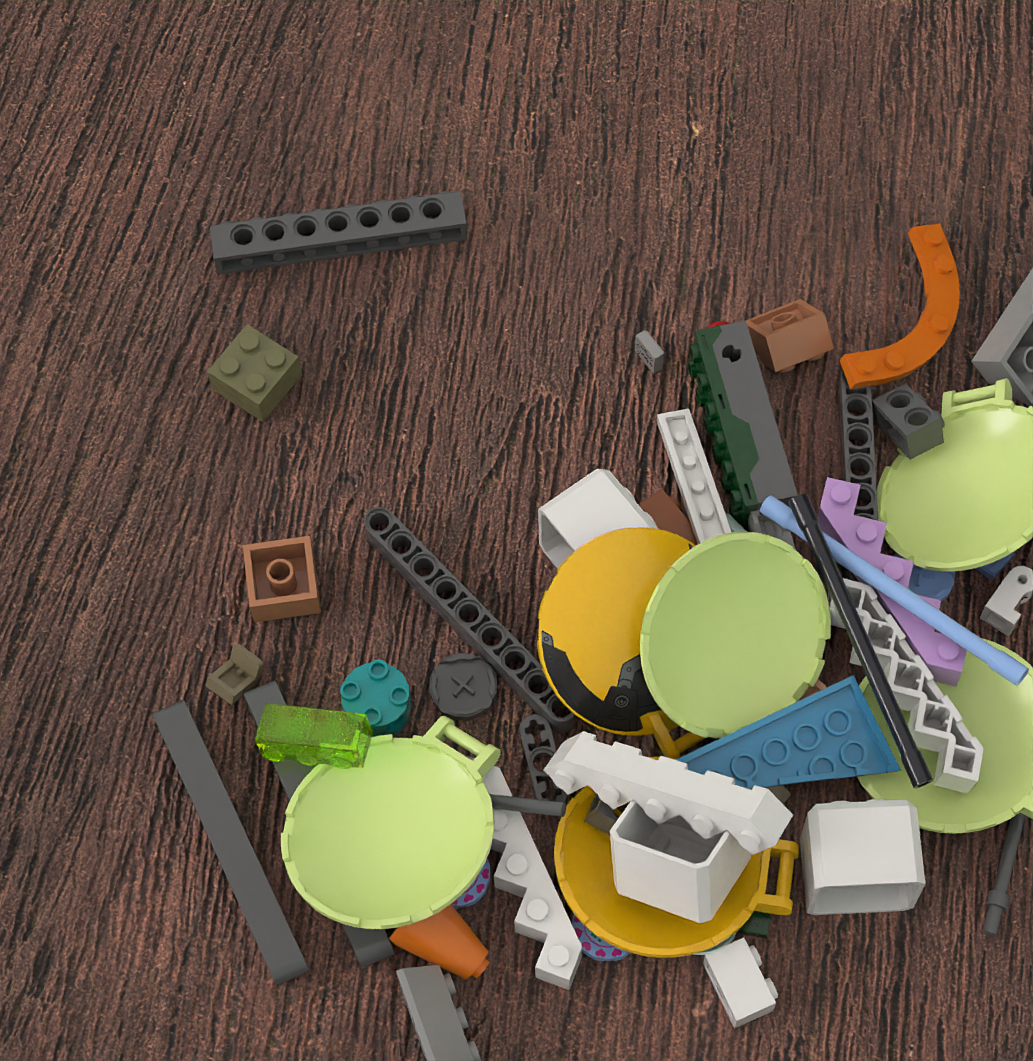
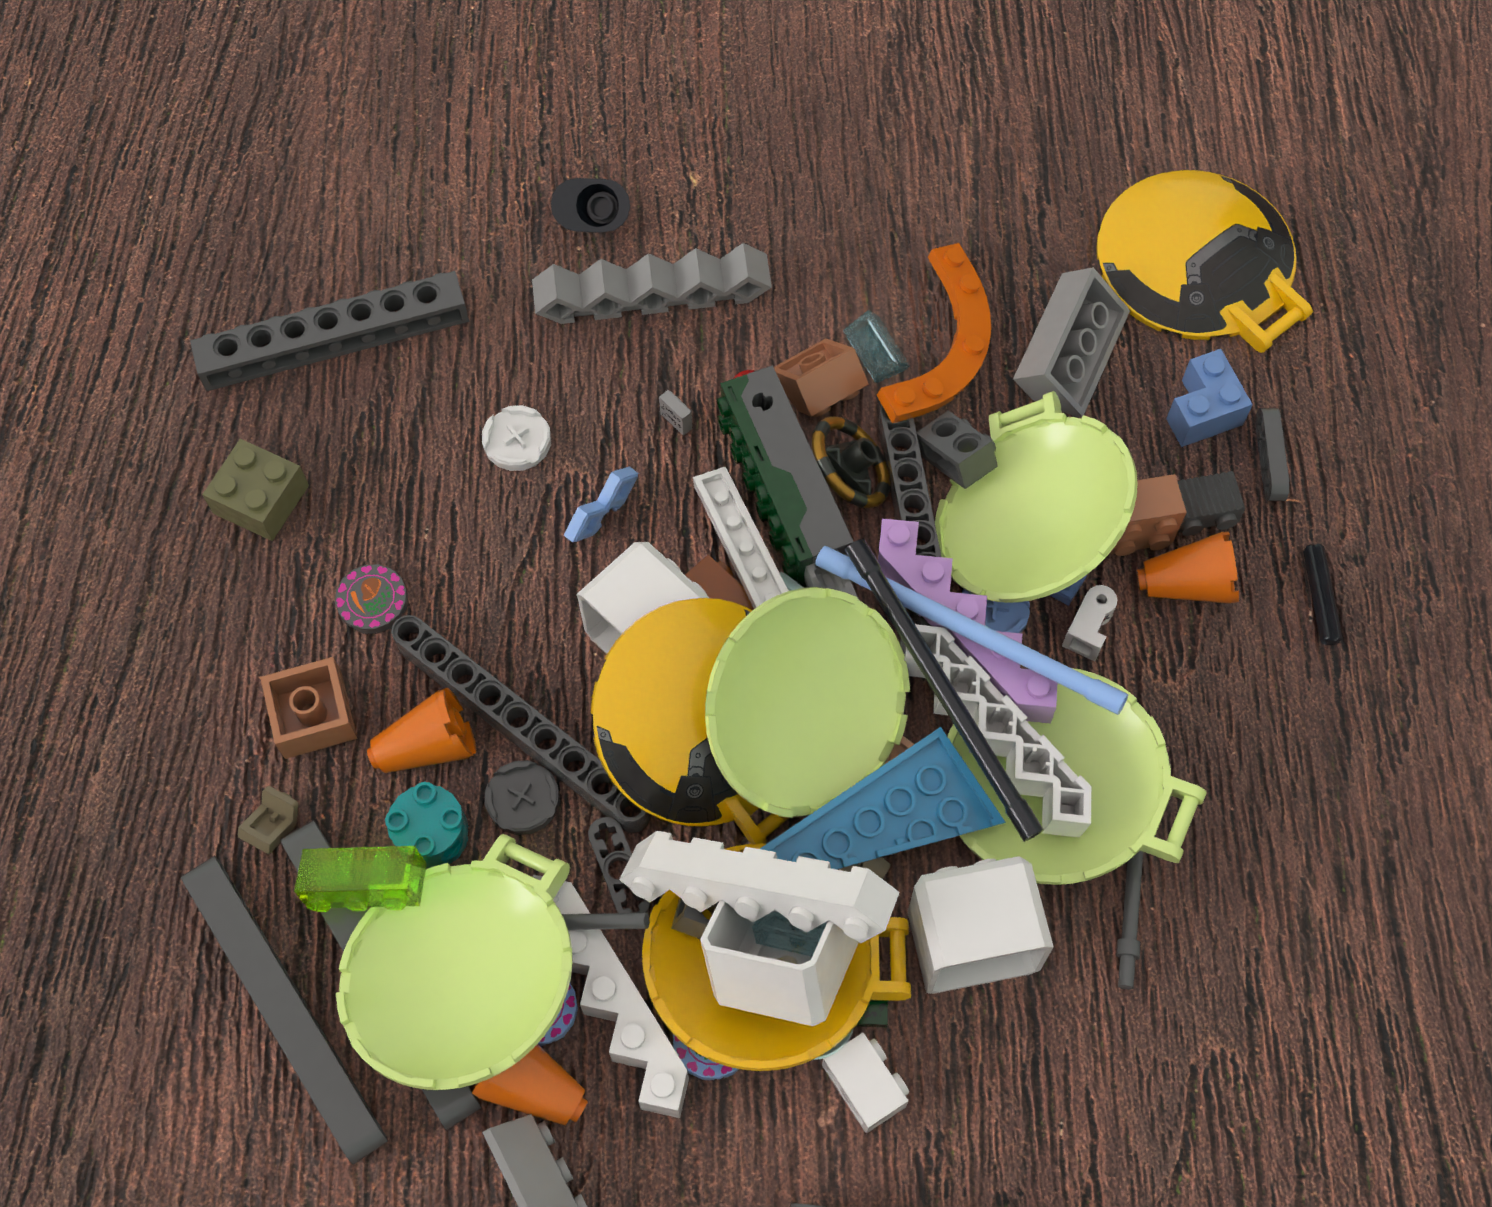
camera: 10 degrees left, 0 degrees up
(348, 487) = (371, 598): none -> dark grey tile
(382, 619) = (424, 736): none -> orange cone
(498, 356) = (516, 438): none -> white tile
(581, 421) = (613, 495): none -> light blue tile
(595, 143) = (590, 205): none -> black piece
(643, 227) = (651, 285): none -> light grey brick
(683, 839) = (777, 932): none -> clear light blue slope
(807, 421) = (851, 463): none -> pearl dark grey piece
(846, 313) = (876, 347): none -> clear light blue slope

